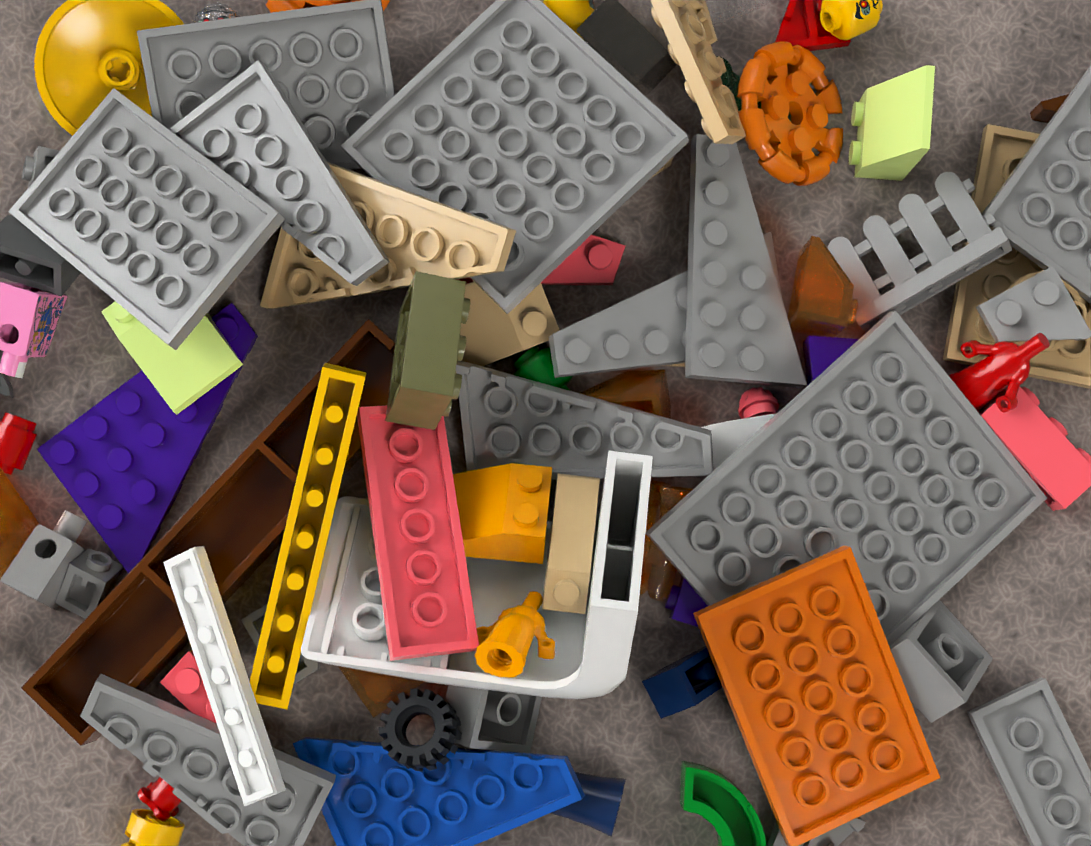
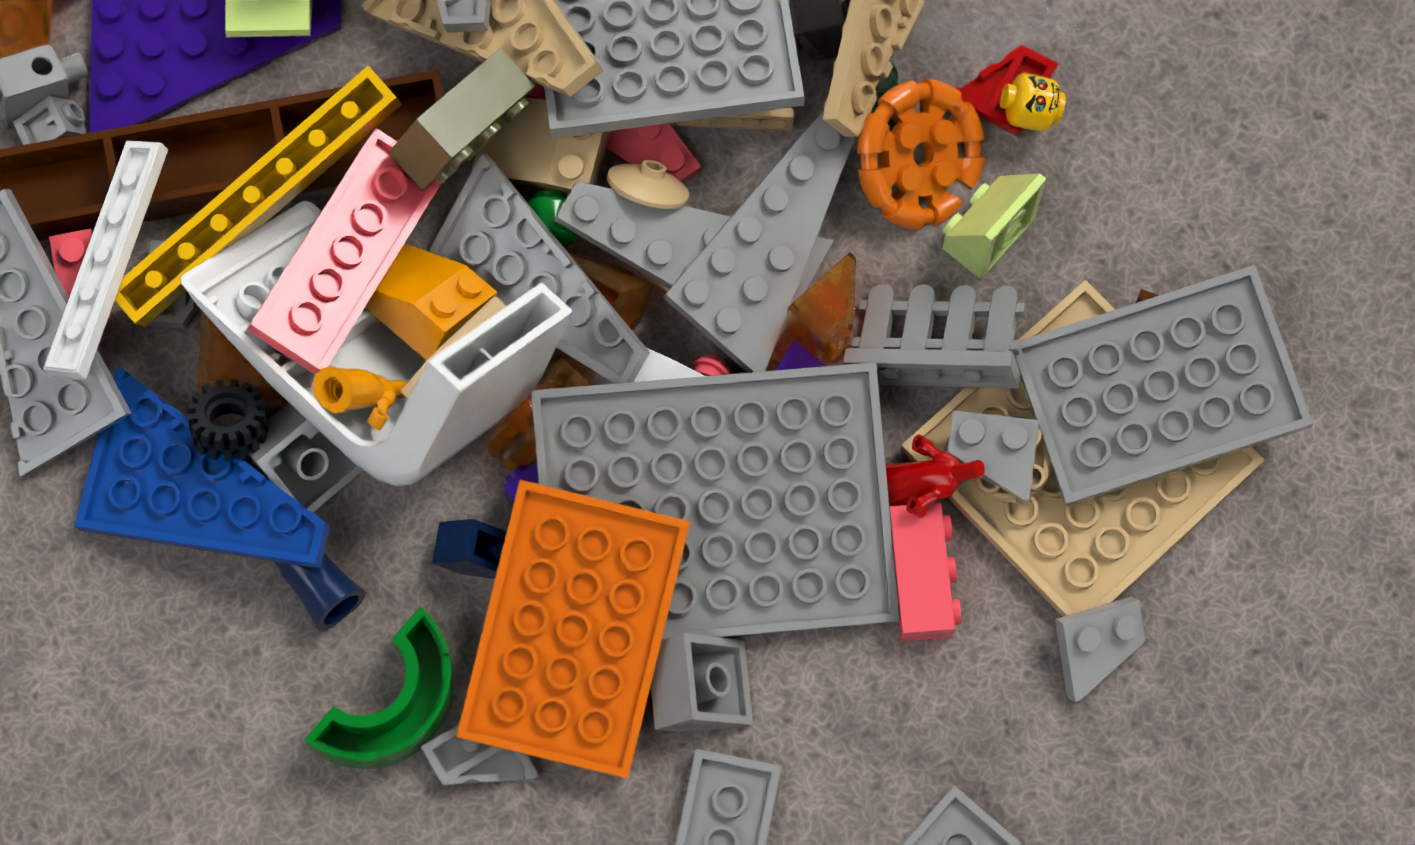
camera: 30 degrees right, 10 degrees down
(604, 294) = (648, 185): none -> tan dish

